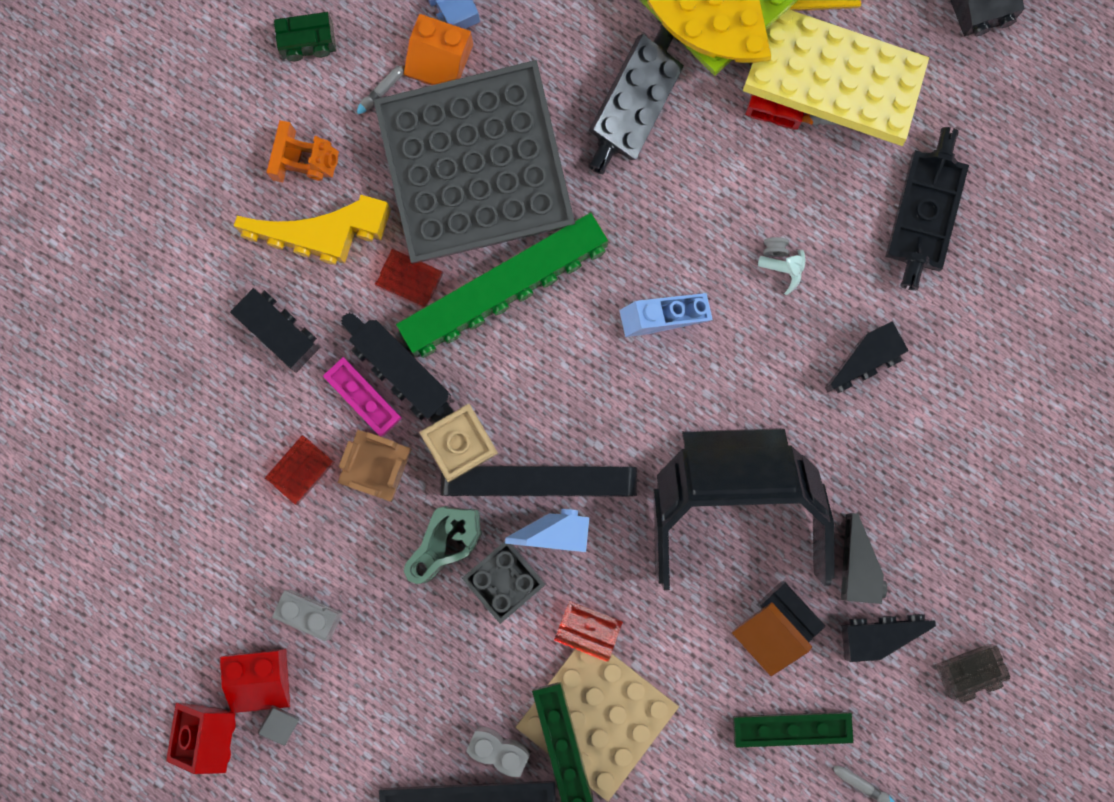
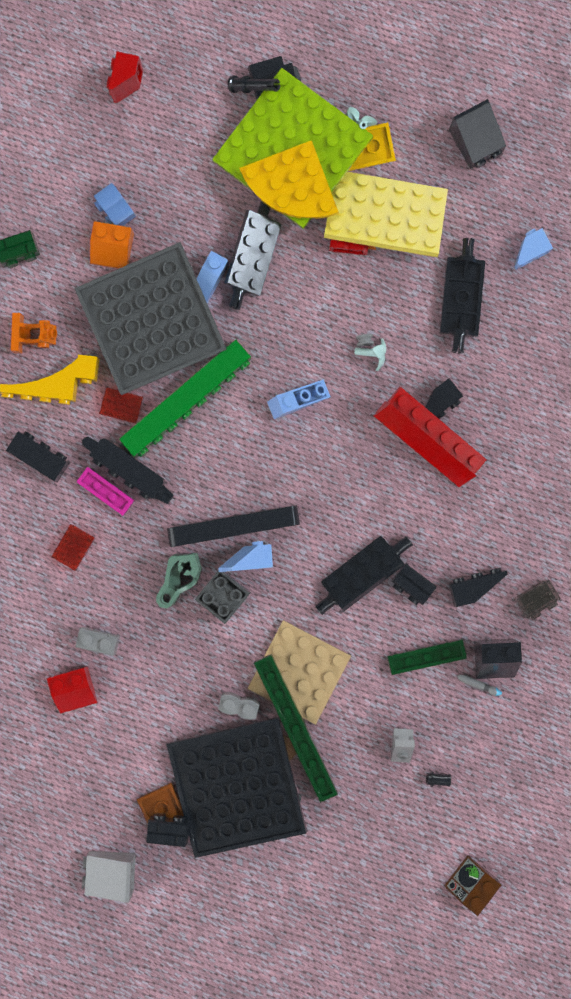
camera: 15 degrees left, 5 degrees up
(201, 738) = (43, 733): red slope -> none
(278, 725) = (92, 715): dark grey tile -> none
(367, 102) = (76, 277): light grey piece -> none
(373, 465) = (122, 535): medium nougat panel -> none
(458, 443) = (176, 511): tan tile -> none
(573, 115) = (211, 274): none -> light blue slope
(588, 631) = (283, 618): clear red plate -> none
(717, 586) = (362, 573): none -> black plate
(741, 470) = (362, 496): black piece -> none
(771, 639) = (403, 602): dark orange tile -> none
(851, 402) = (430, 437): none -> red slope
(861, 570) = (455, 547): dark grey slope -> none
(901, 751) = (497, 658): none -> black slope
(1040, 158) = (533, 247): none -> light blue slope

